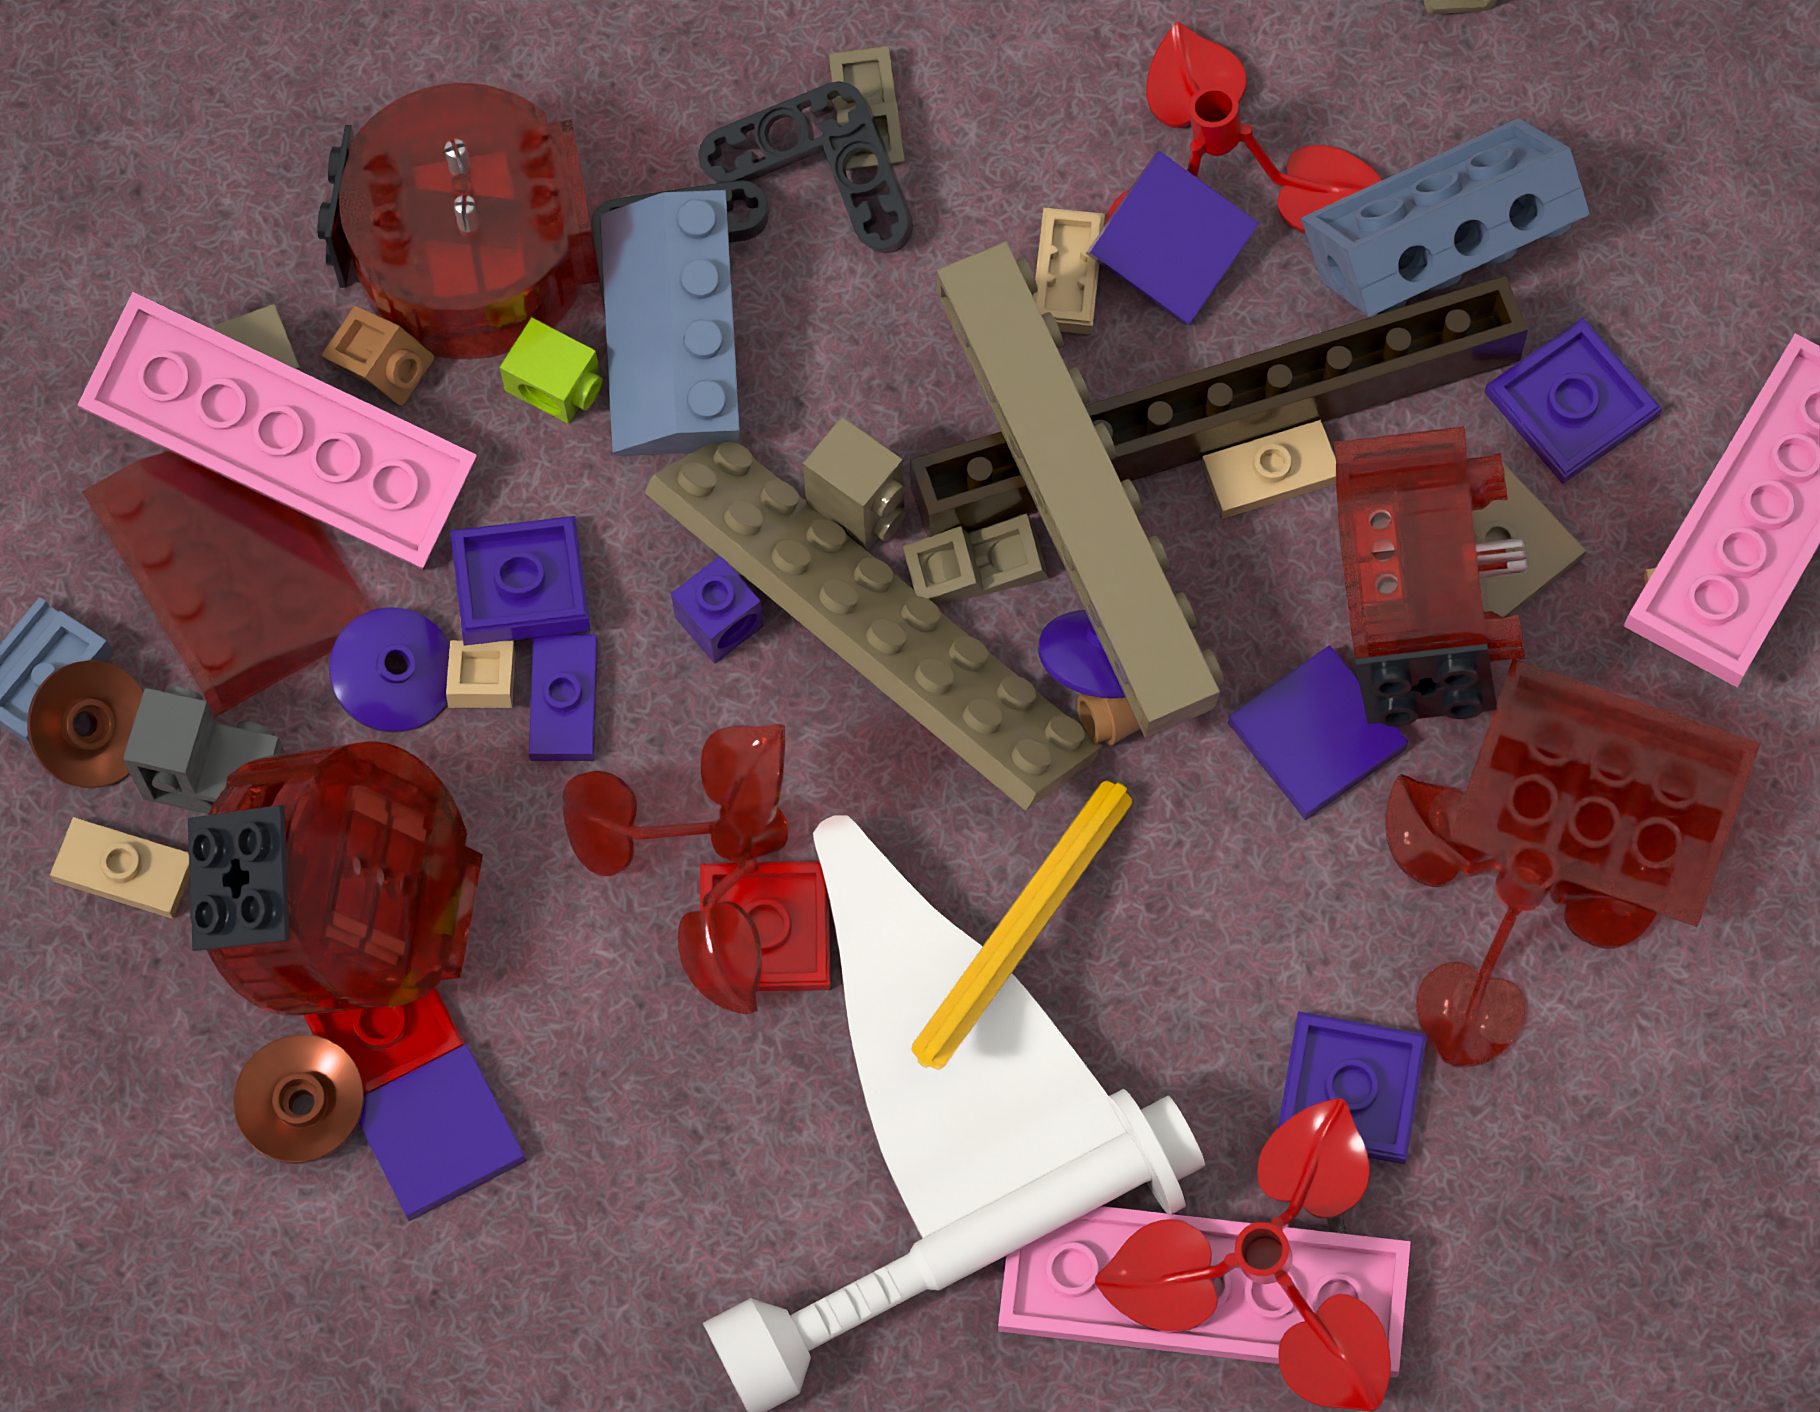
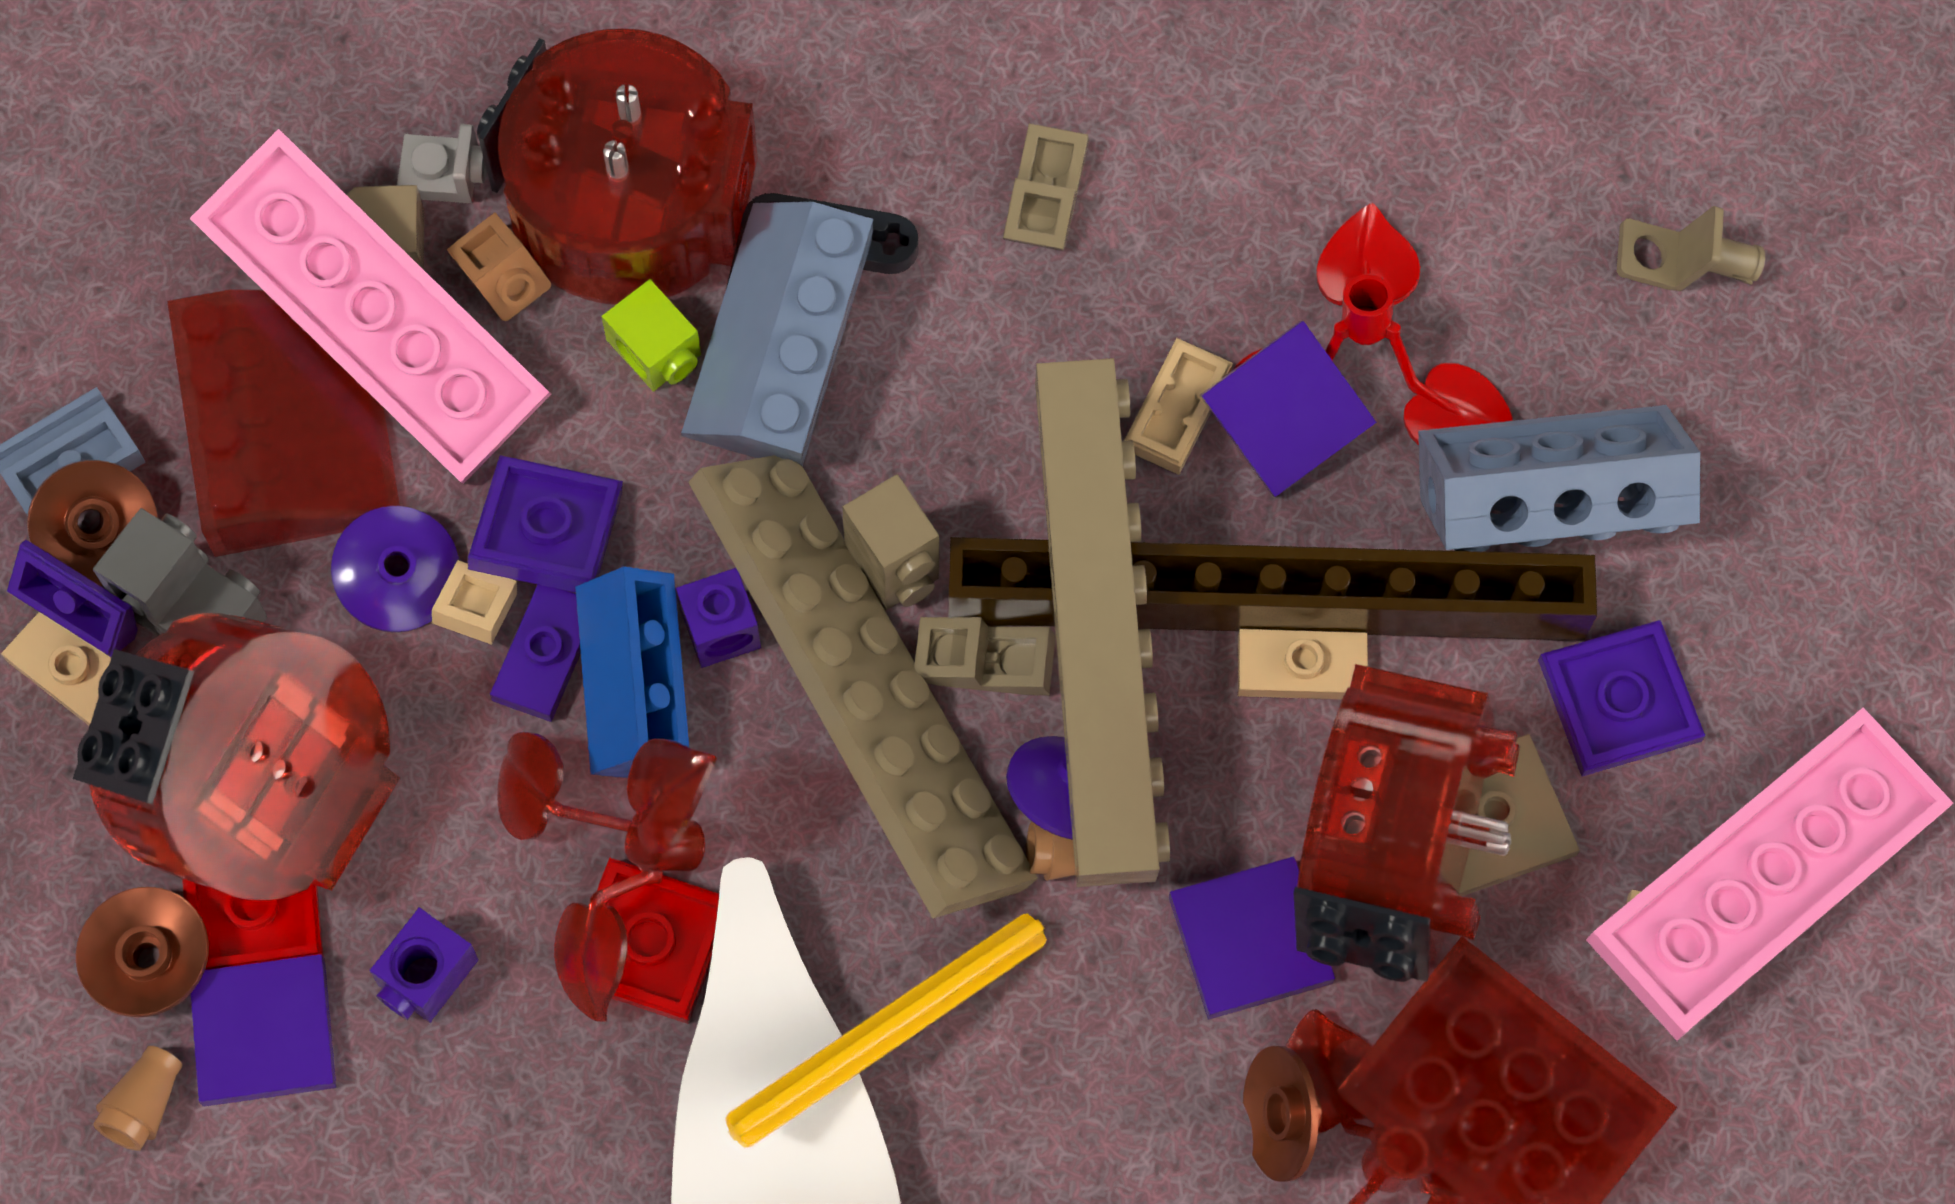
camera: 15 degrees right, 0 degrees up
(100, 800) = (71, 600): none -> dark purple slope
(286, 278) = (443, 165): none -> light grey bracket
(349, 1235) = (138, 1101): none -> medium nougat cone
(561, 995) = (418, 939): none -> dark purple brick
(654, 682) = (630, 666): none -> blue brick
(839, 145) = (1003, 213): black beam -> none
(1406, 875) = (1282, 1113): none -> copper dish

